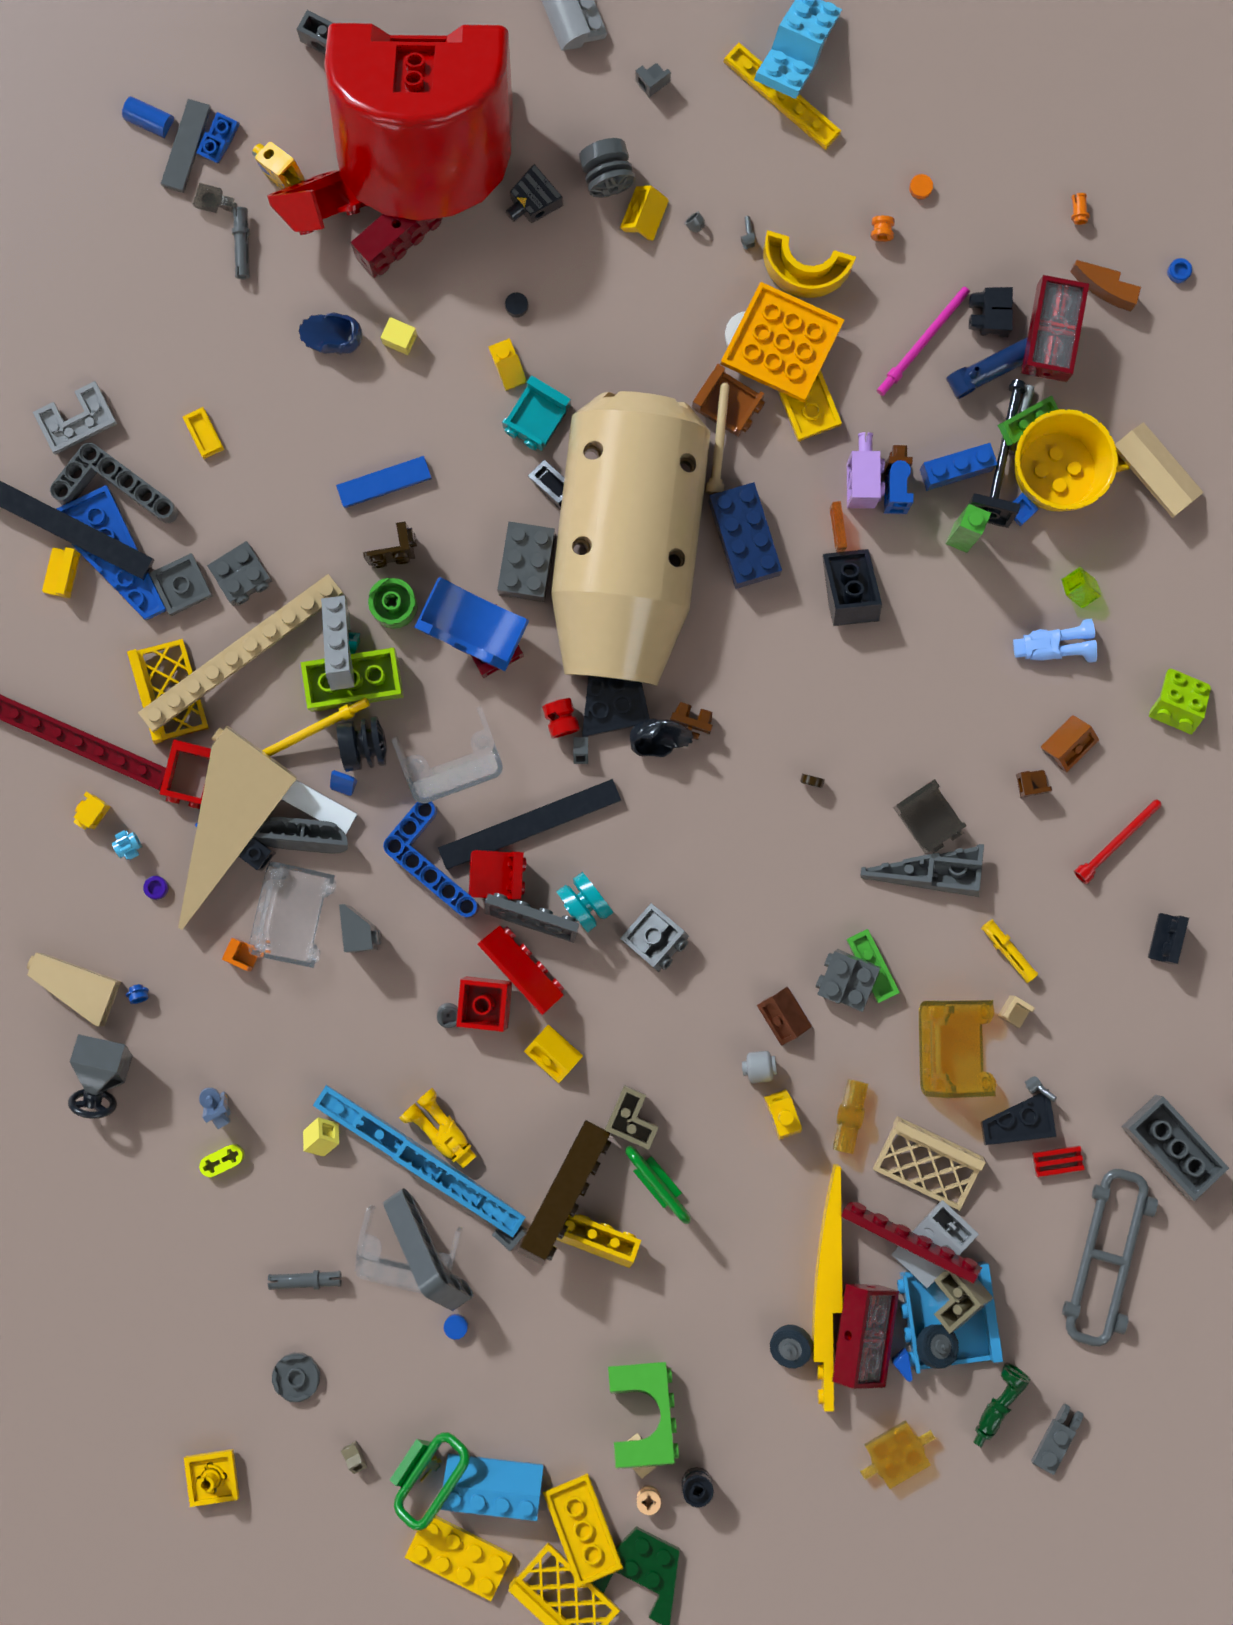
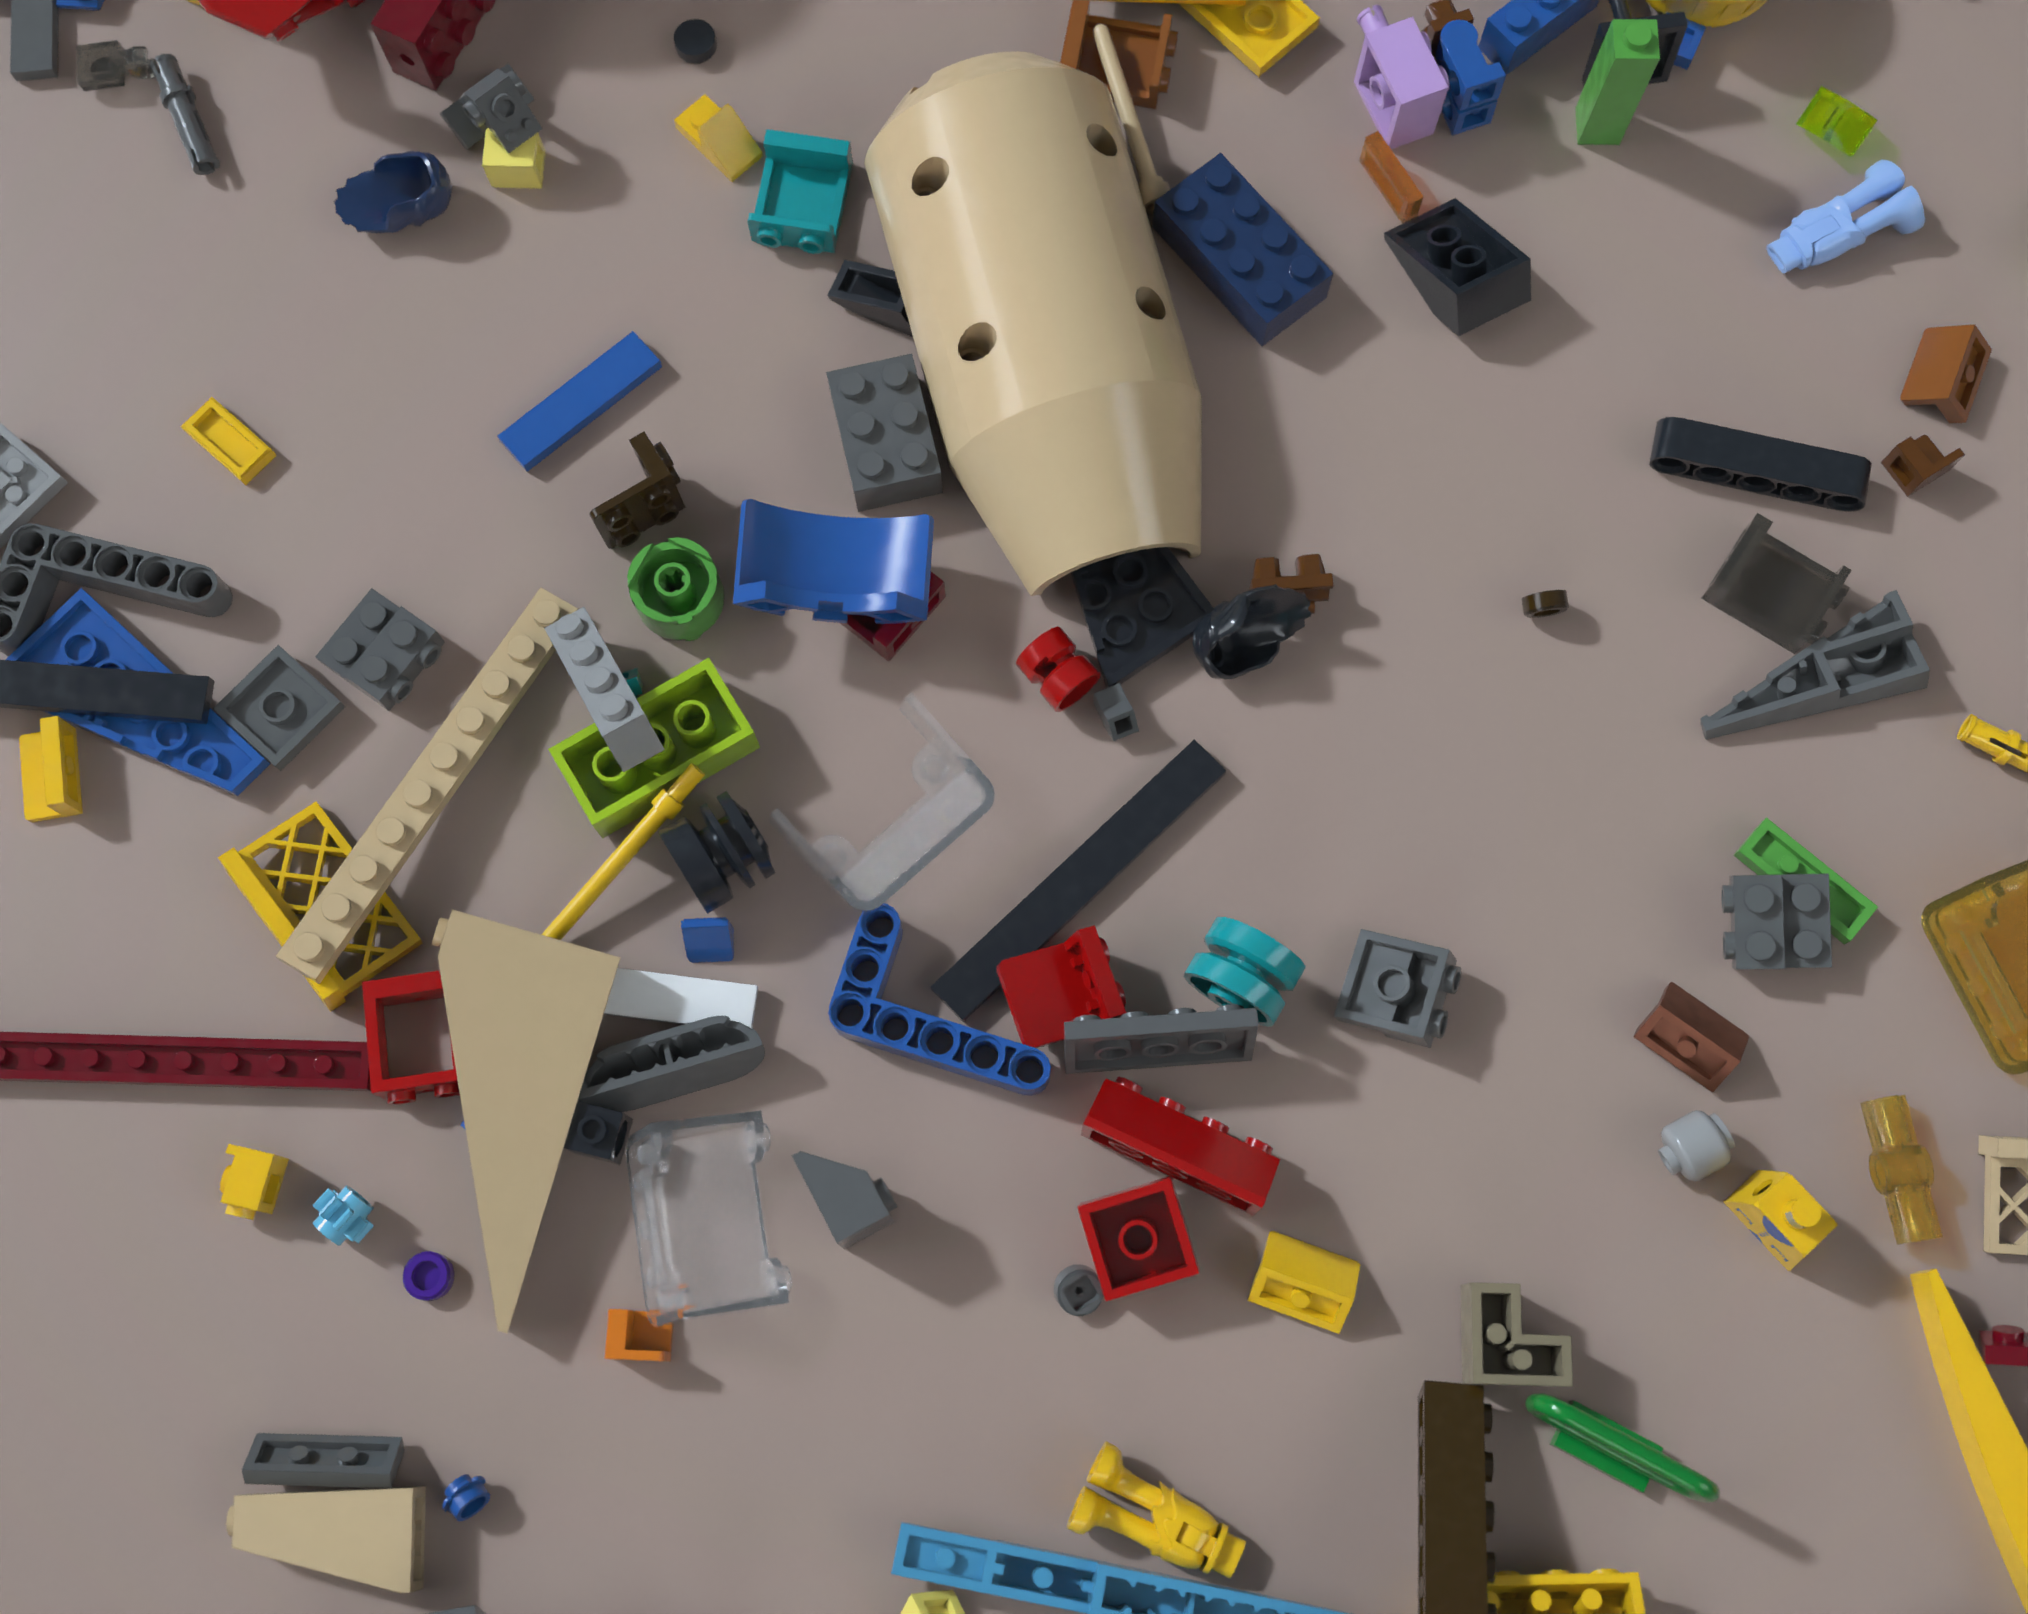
camera: 20 degrees left, 10 degrees down
(80, 952) = (323, 1460): none -> dark grey plate
(398, 306) = (497, 104): none -> dark grey tile
(952, 752) = (1760, 464): none -> black beam

